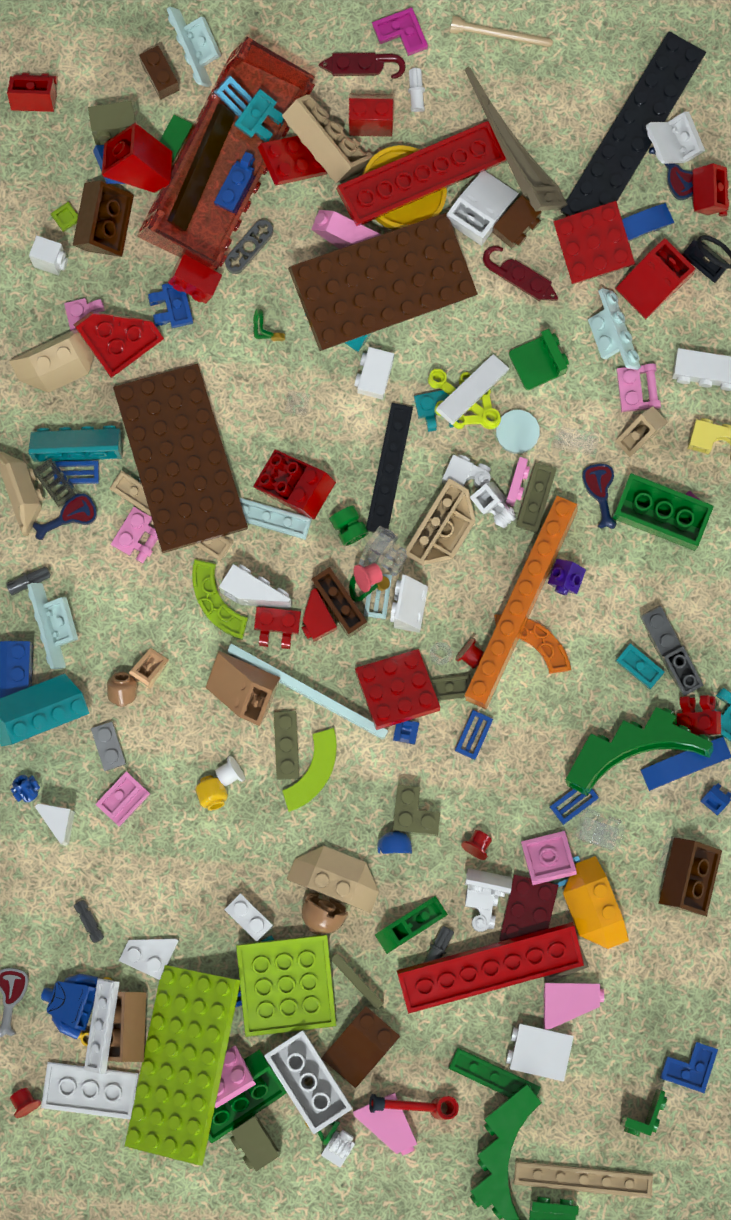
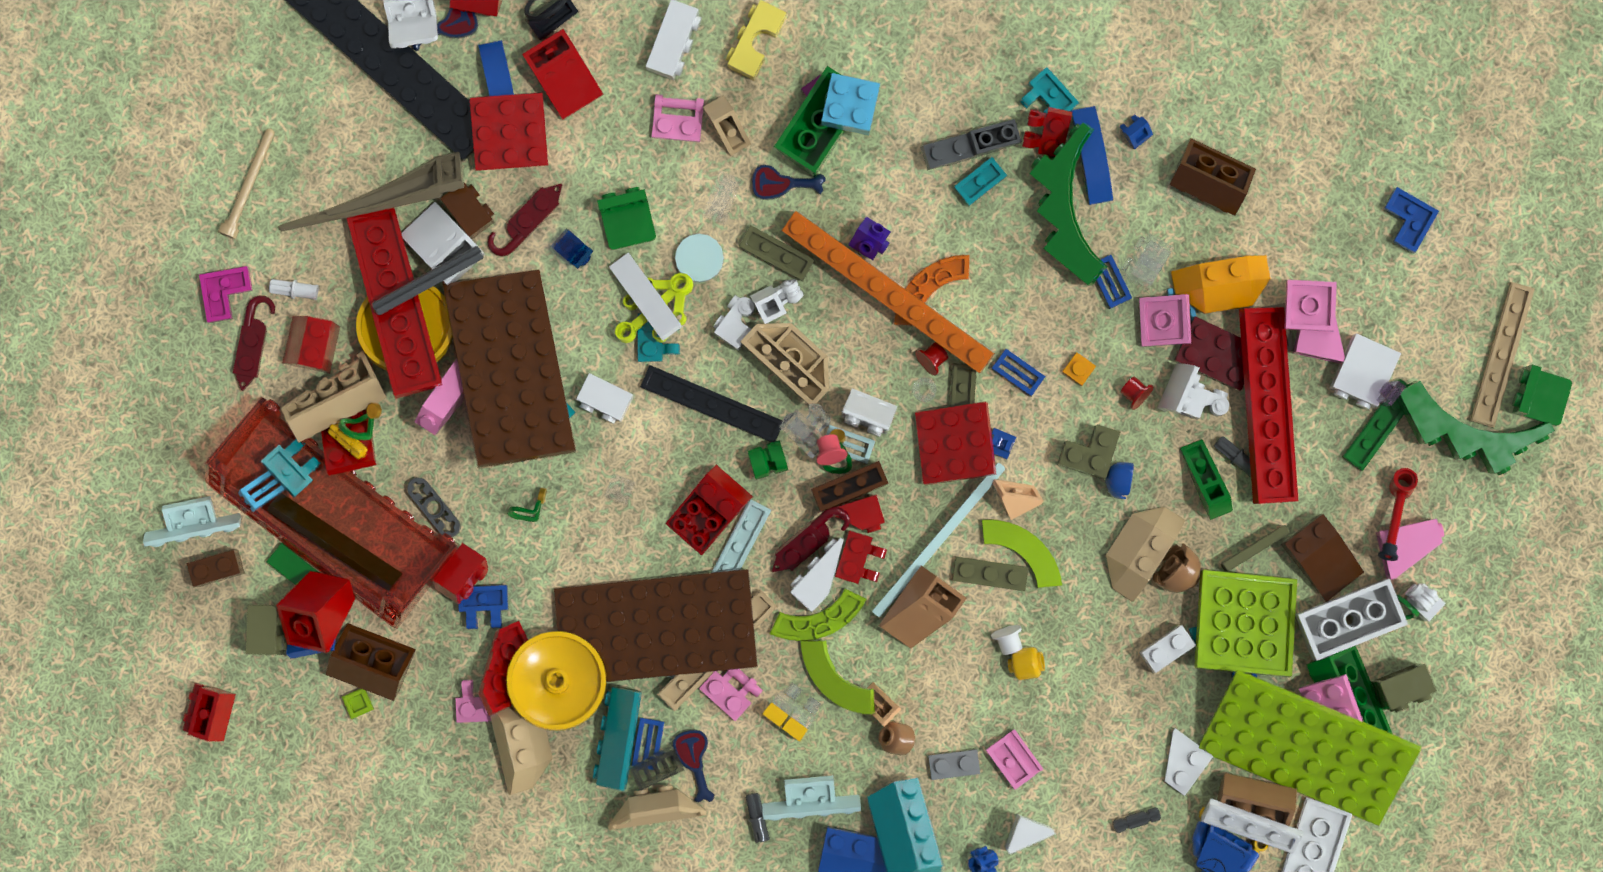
camera: 80 degrees left, 5 degrees up
(48, 255) = (402, 729): white brick -> none
(115, 377) = (556, 681): none -> yellow dish
(126, 601) = (801, 718): none -> clear hips
(158, 622) = (831, 683): none -> lime tile
(236, 184) = (360, 508): blue hinge -> none
(283, 574) = (807, 540): none -> dark red plate
(291, 156) = (347, 442): none -> yellow axle
(320, 173) = (373, 412): none -> green piece
(359, 754) = (1017, 497): none -> light nougat slope
(446, 196) = (427, 280): none -> dark grey axle
(488, 789) = (1079, 369): none -> light orange plate
(501, 318) = (572, 249): none -> clear blue bracket
(515, 490) = (747, 264): bright pink plate -> none
(524, 1076) = (1390, 392): none -> clear purple plate
(589, 986) = (1310, 305): none -> bright pink plate
(611, 332) = (611, 134): light aqua bracket -> none
(651, 1124) = (1462, 272): green bracket -> none
(682, 531) = (850, 104): none -> medium azure brick

